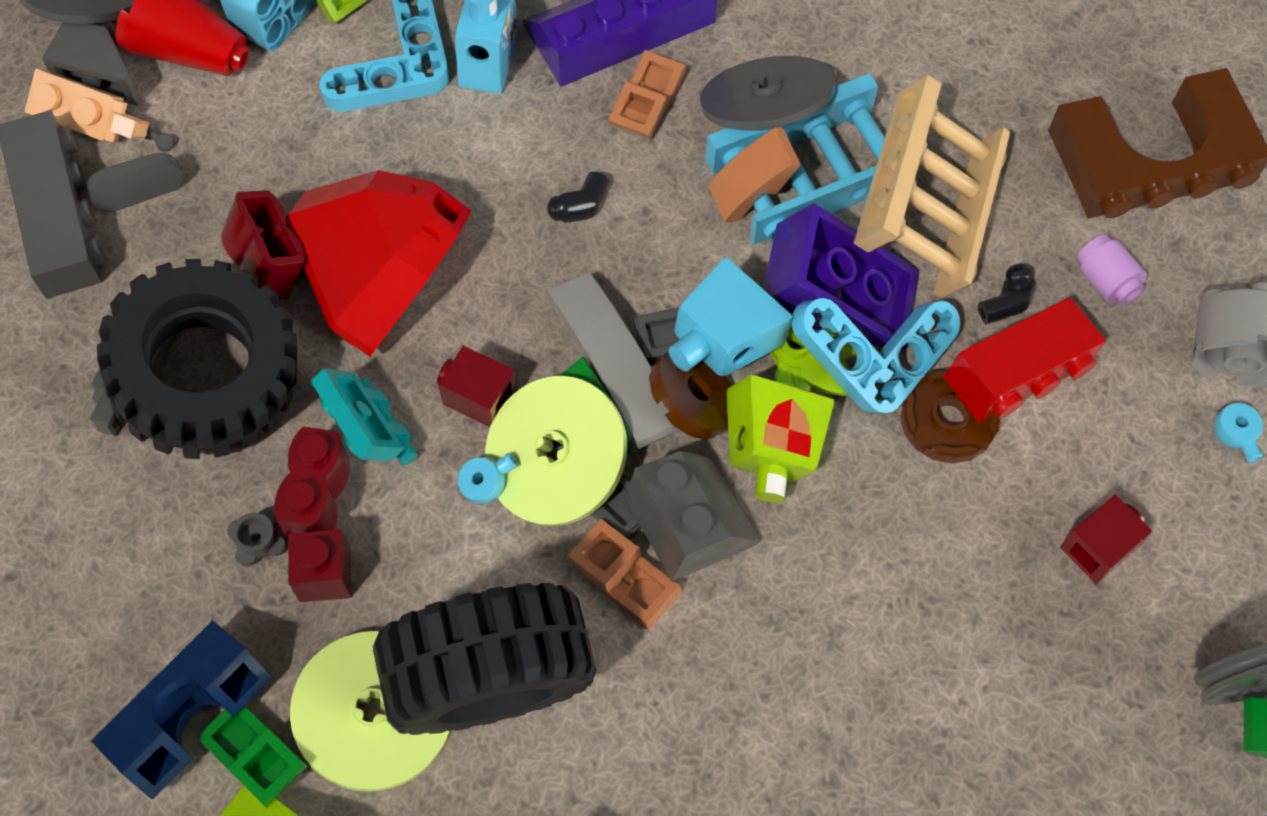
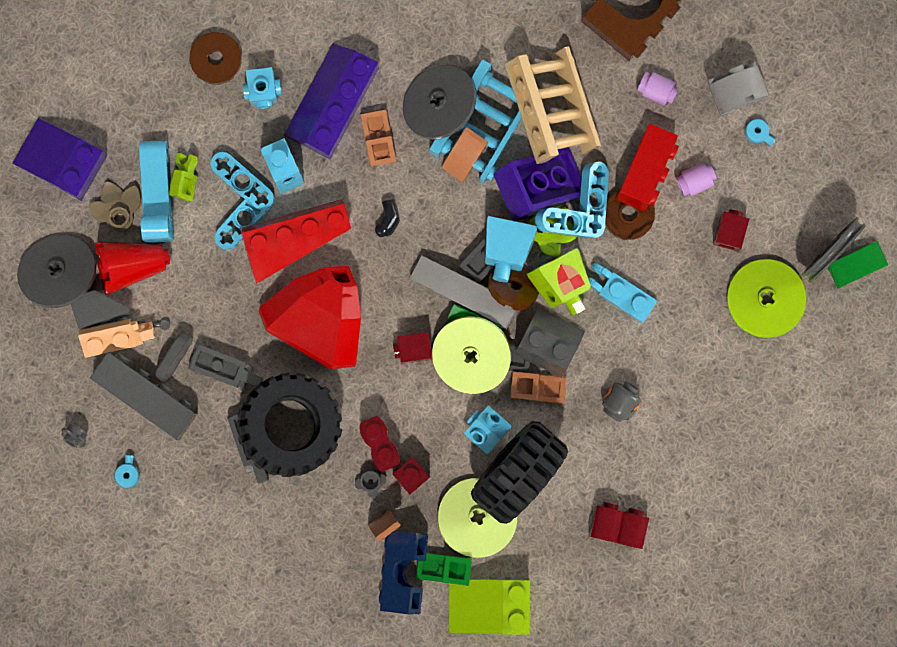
camera: 40 degrees left, 20 degrees up
(182, 229) = (223, 368): none -> dark grey hinge
(211, 608) = (384, 525): none -> nougat slope
(261, 241) = (264, 349): dark red brick -> none
(363, 417) = (379, 399): teal plate -> none
(415, 126) = (290, 237): none -> red wedge
(491, 564) = (486, 429): none -> medium azure brick
(493, 478) = (451, 383): medium azure piece -> none
(744, 683) = (621, 401): none -> dark grey head
(861, 524) = (623, 294): none -> medium azure hinge
(1013, 298) = (621, 132): black arm -> none
(1085, 723) = (767, 319): none -> lime piece
(1094, 429) = (696, 179): none -> lavender brick

